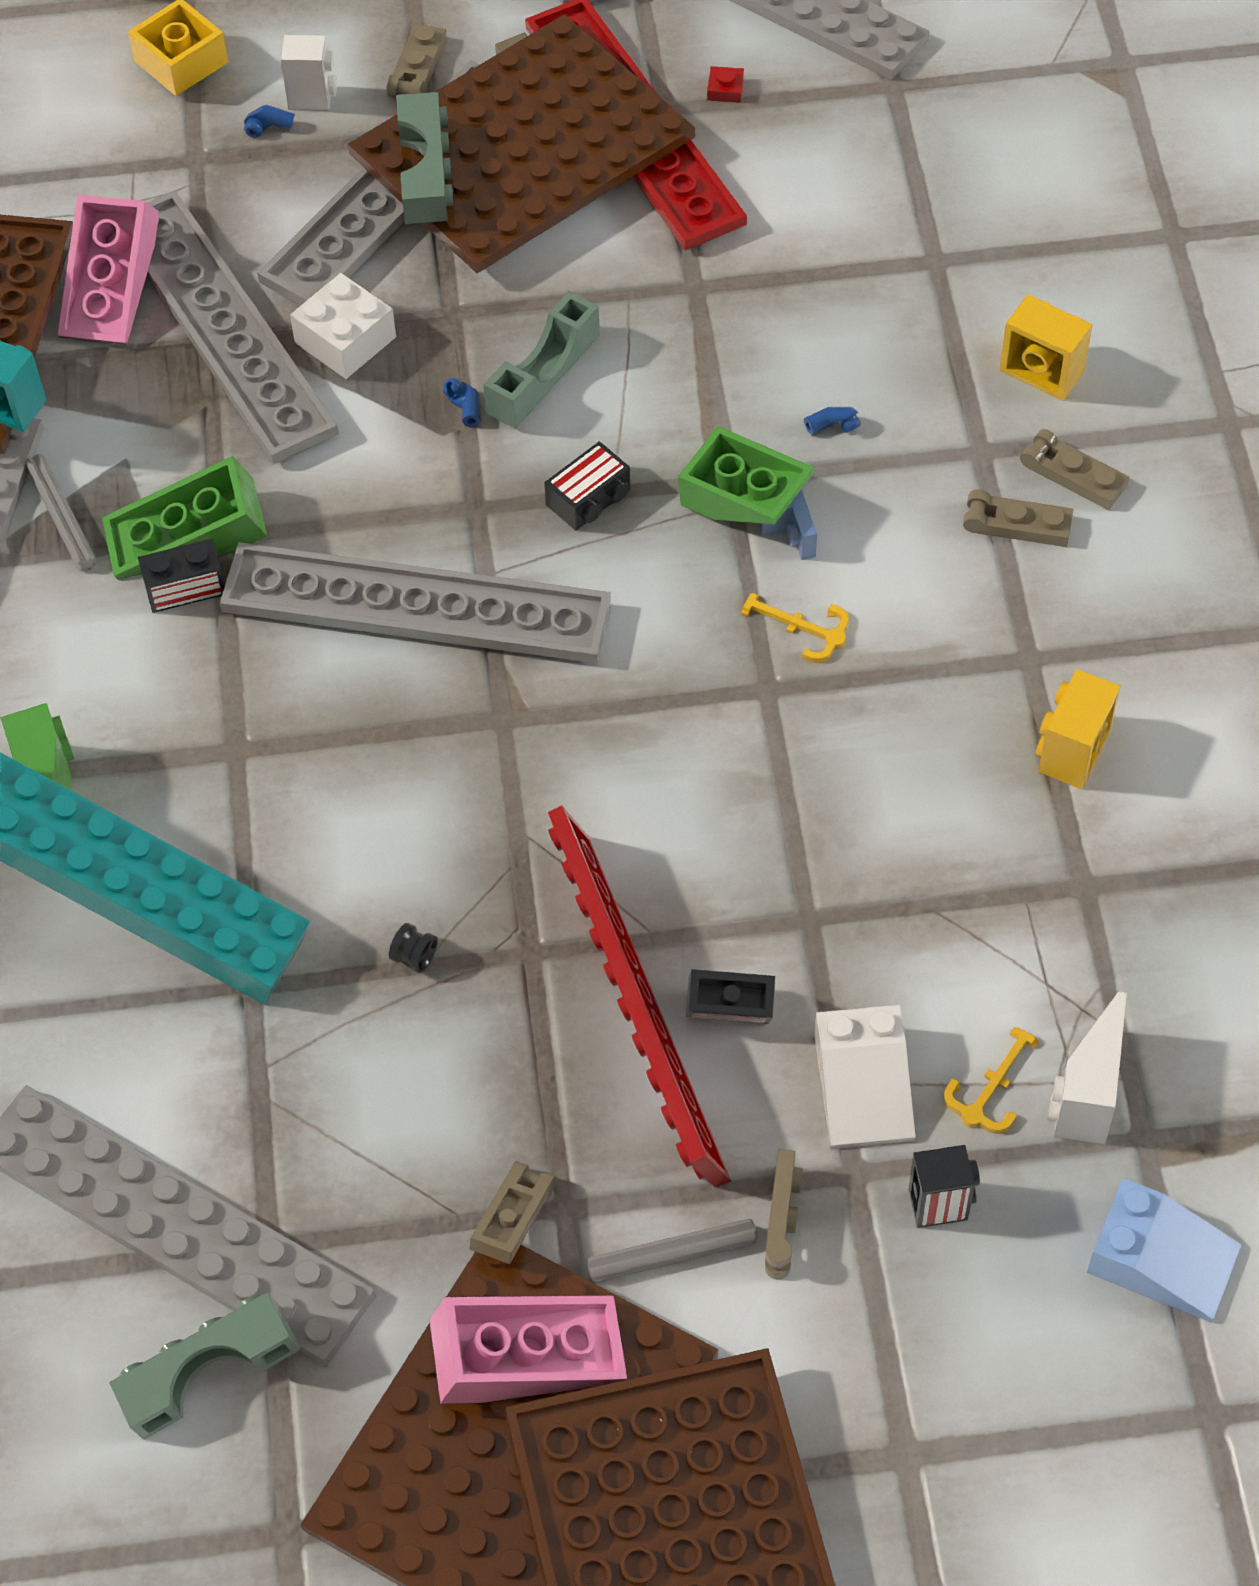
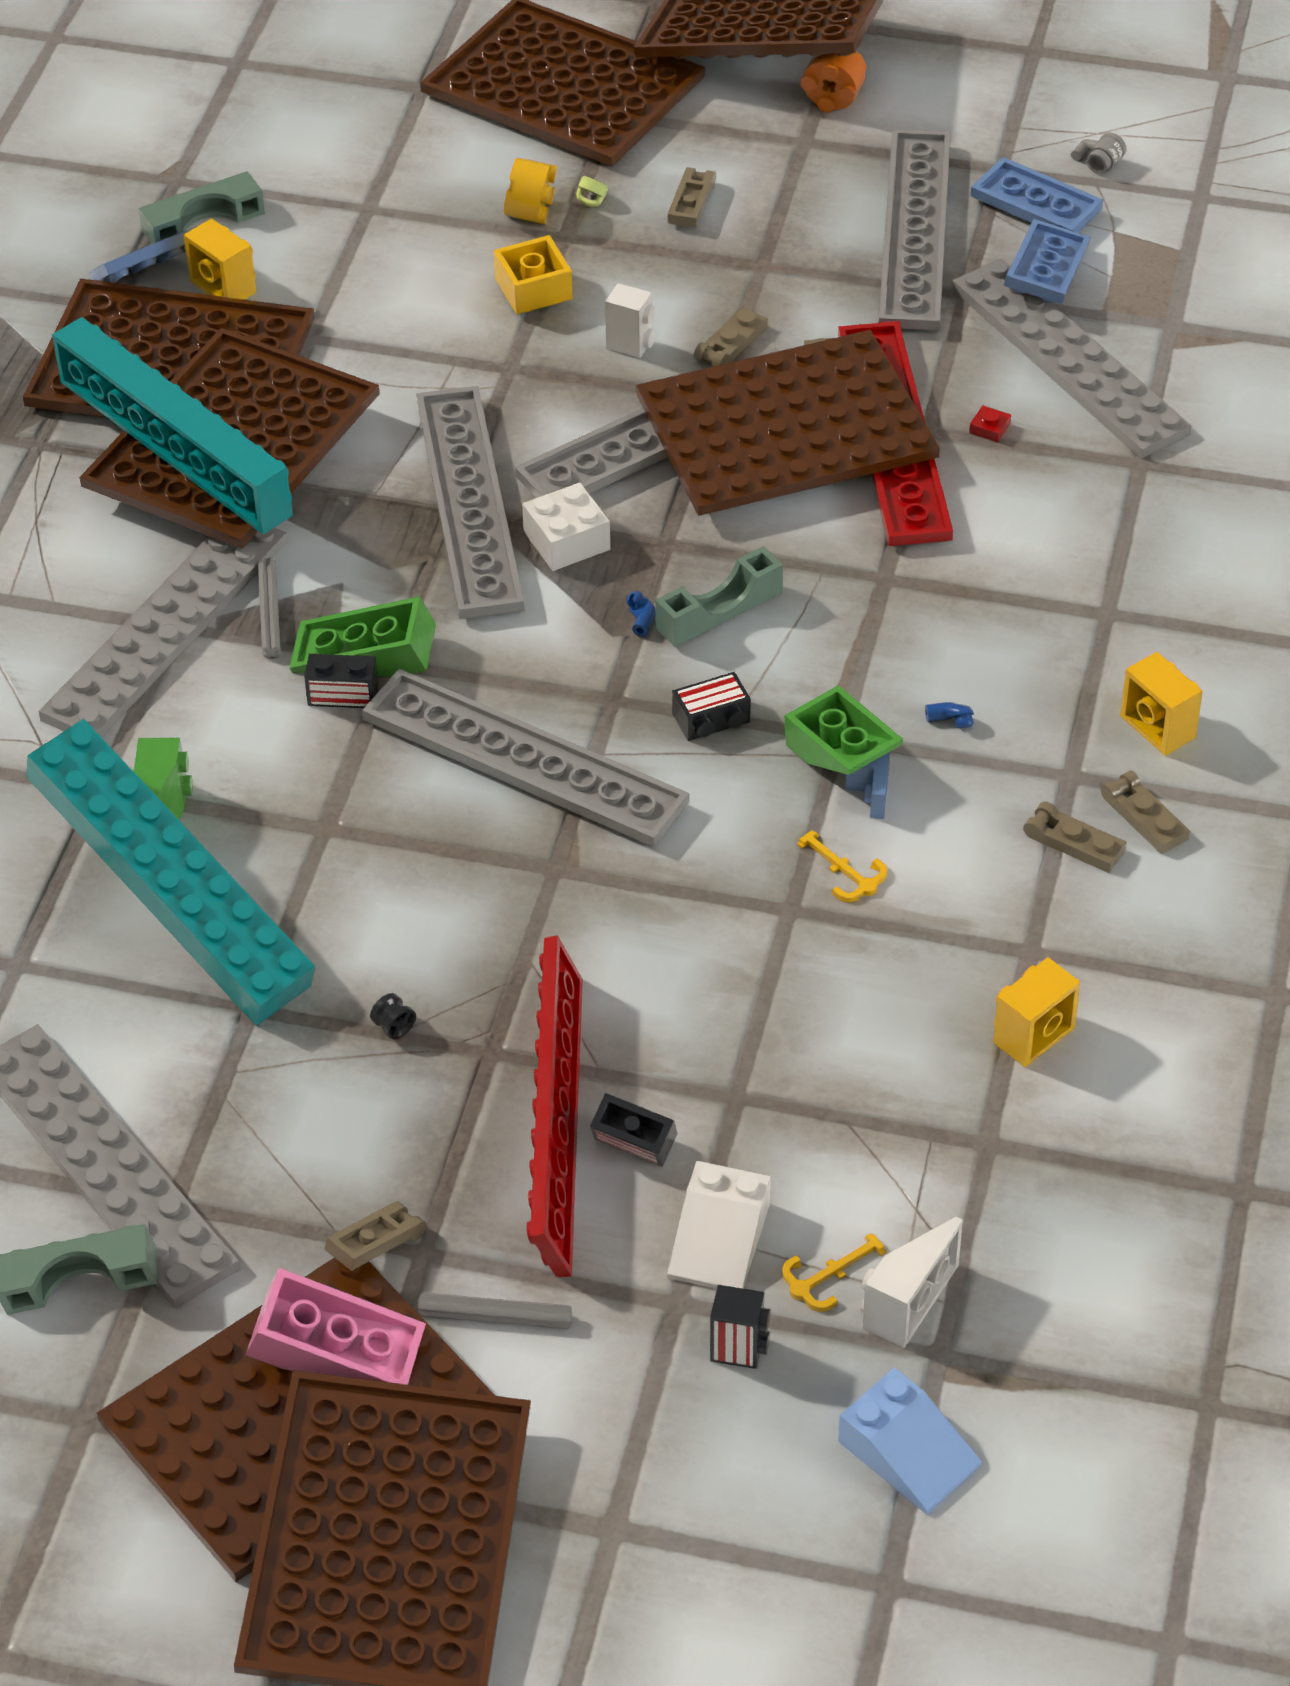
camera: 20 degrees right, 10 degrees down
(106, 267) = (392, 428): bright pink slope -> none
(265, 117) = (580, 349): blue arm -> none
(424, 186) = (680, 432): sand green arch -> none
(782, 1215) = (597, 1309): dark tan plate -> none

